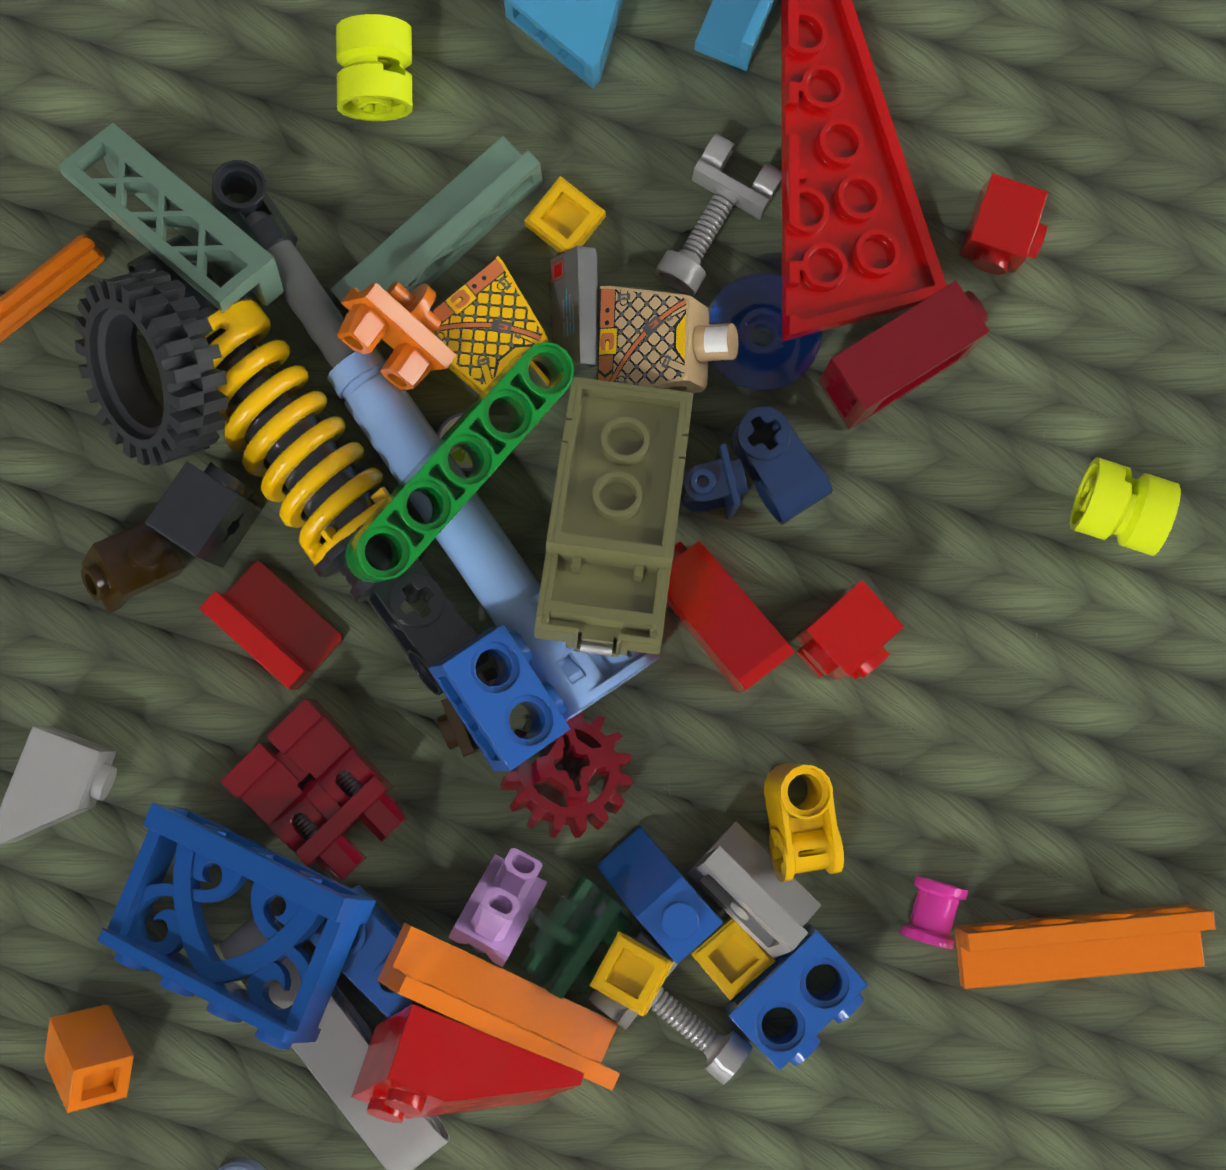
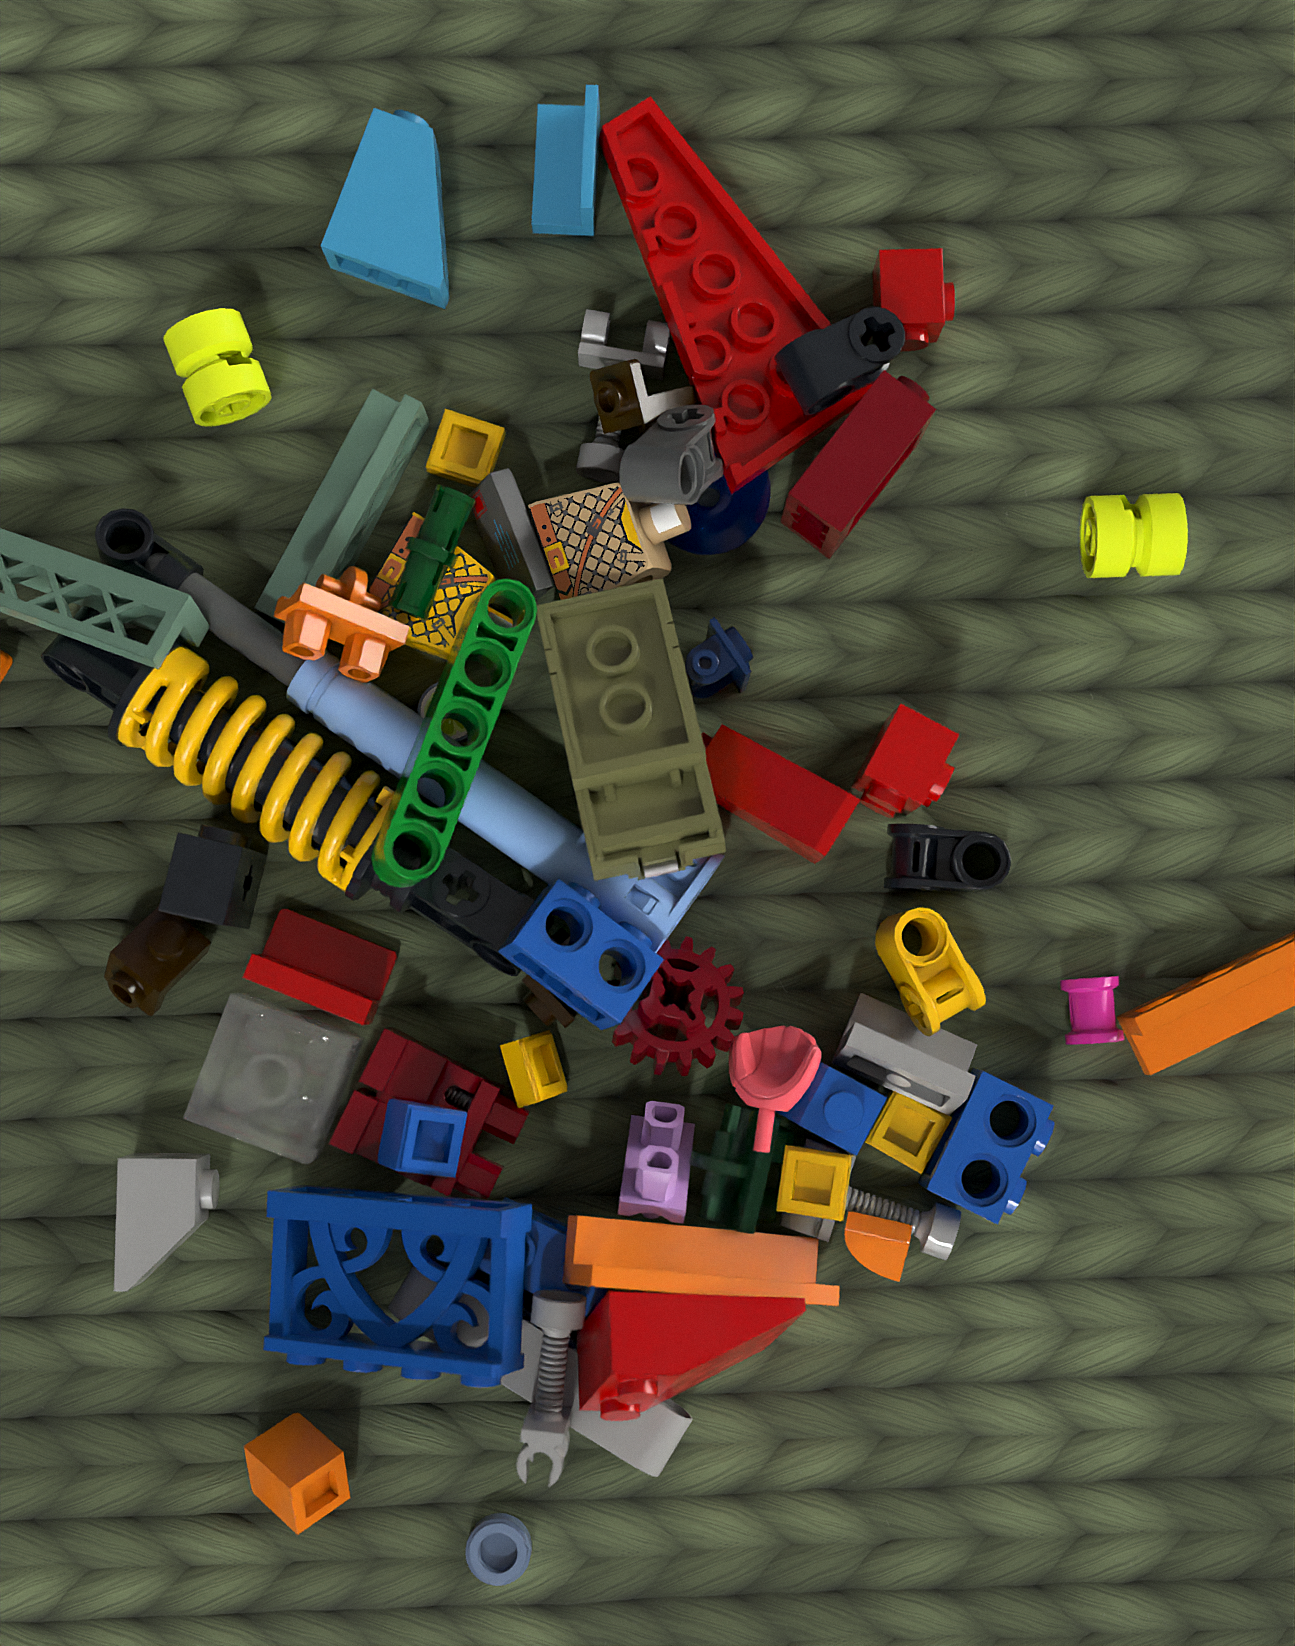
camera: 20 degrees left, 0 degrees up
(182, 355) = (133, 726): black tyre -> none
(194, 706) = (273, 1078): none -> clear brick
(302, 807) = (421, 1138): none -> blue slope
(319, 1096) = (547, 1420): none -> light grey bar
(424, 782) = (534, 1068): none -> yellow tile
(499, 296) = (431, 552): none -> dark green pin
(630, 863) = (772, 1073): none -> coral piece
(669, 1047) = (878, 1243): none -> orange tile
(717, 228) = (624, 401): none -> dark brown bracket
(740, 291) = (672, 458): none -> dark grey piece
(784, 475) = (778, 624): dark blue piece -> none
(848, 729) = (940, 859): none -> black piece
(922, 256) = (840, 358): none -> black piece

